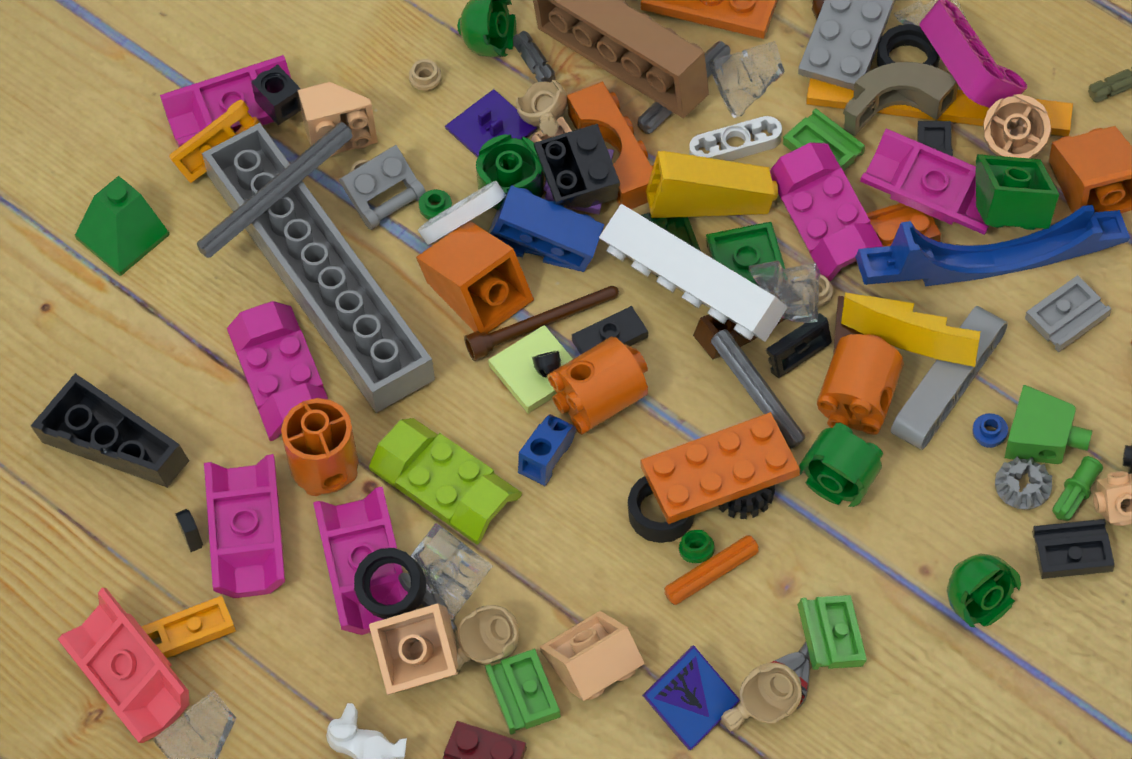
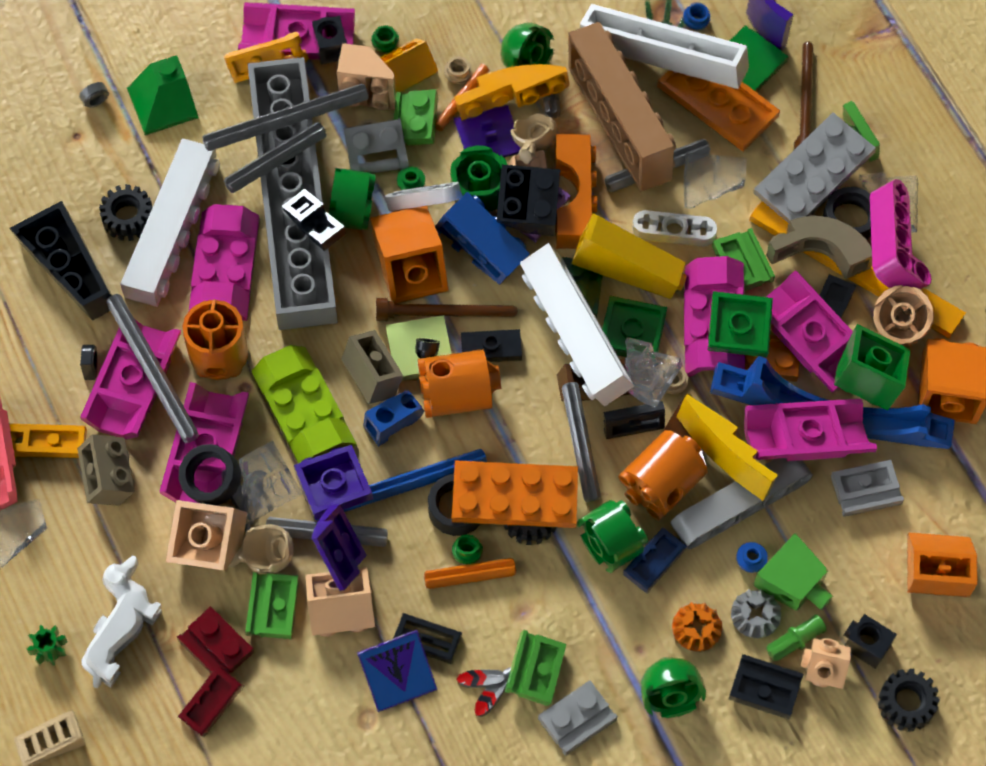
camera: 20 degrees right, 5 degrees up
(44, 255) = (94, 94): none -> dark grey tile
(146, 344) = (122, 199): none -> black tyre
(200, 352) = (170, 223): none -> white brick
(266, 504) = (152, 368): none -> flat silver axle
(270, 630) = (105, 470): none -> dark tan brick
(286, 234) = (275, 157): none -> flat silver axle
(327, 68) = (382, 33): none -> green plate
(359, 280) = (313, 220): none -> slope
(375, 82) = (410, 64): none -> light orange panel
(385, 245) = (352, 198): none -> green brick
(410, 135) = (417, 115): none -> bright green plate
(442, 101) = (451, 109): none -> orange bar
(499, 61) = (522, 83): none -> light orange slope
(499, 405) = (372, 366): none -> dark tan brick
(521, 537) = (333, 480): none -> dark purple plate
(547, 589) = (304, 530): none -> light grey axle
(567, 595) = (338, 546): none -> dark purple slope
(581, 519) = (418, 477): none -> blue axle
(718, 664) = (434, 628): none -> black tile
(766, 695) = (456, 696): tan hair -> none
(860, 203) = (740, 324): none -> green tile
(894, 479) = (655, 560): none -> dark blue plate
(899, 664) = (577, 717): none -> light grey plate
(971, 535) = (688, 636): none -> orange gear
(981, 279) = (807, 430): none -> dark pink piece

